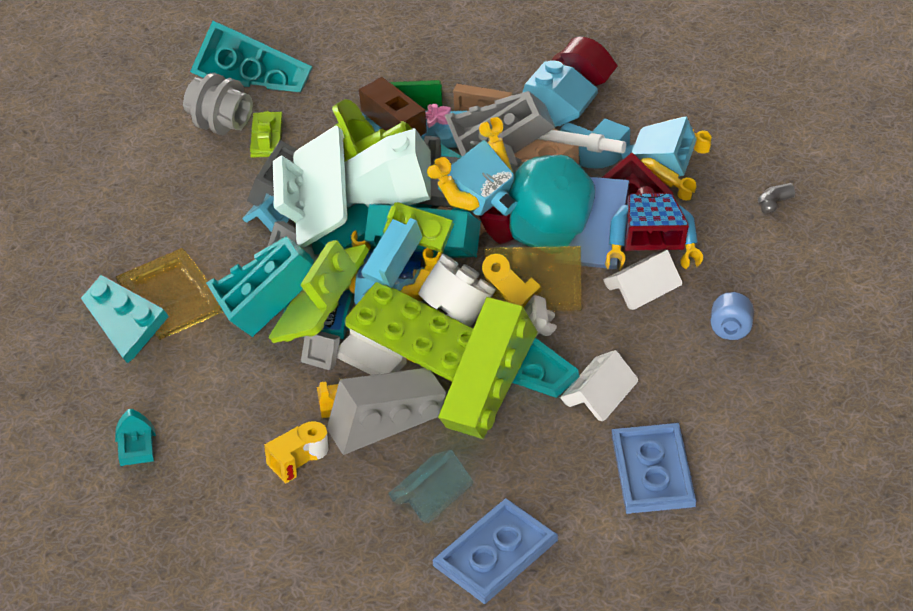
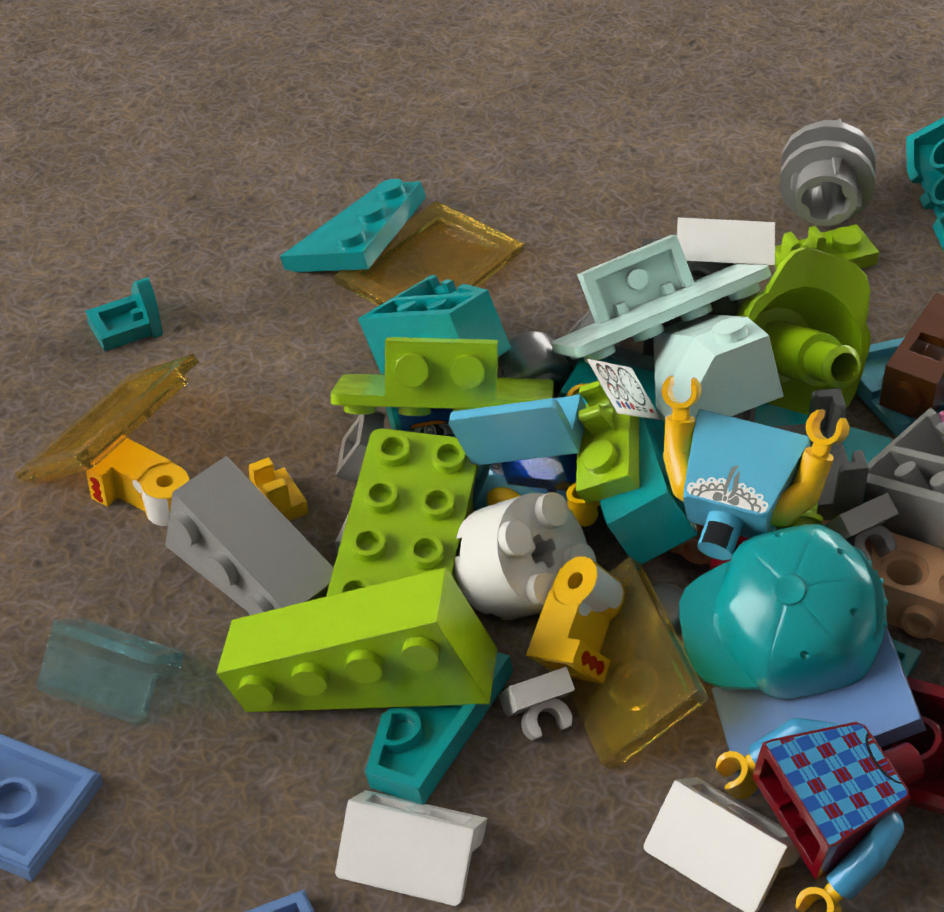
camera: 70 degrees right, 0 degrees up
(244, 451) = (109, 421): none -> clear yellow piece
(278, 143) = (727, 241): none -> white sticker
(404, 199) = (624, 389): none -> white sticker

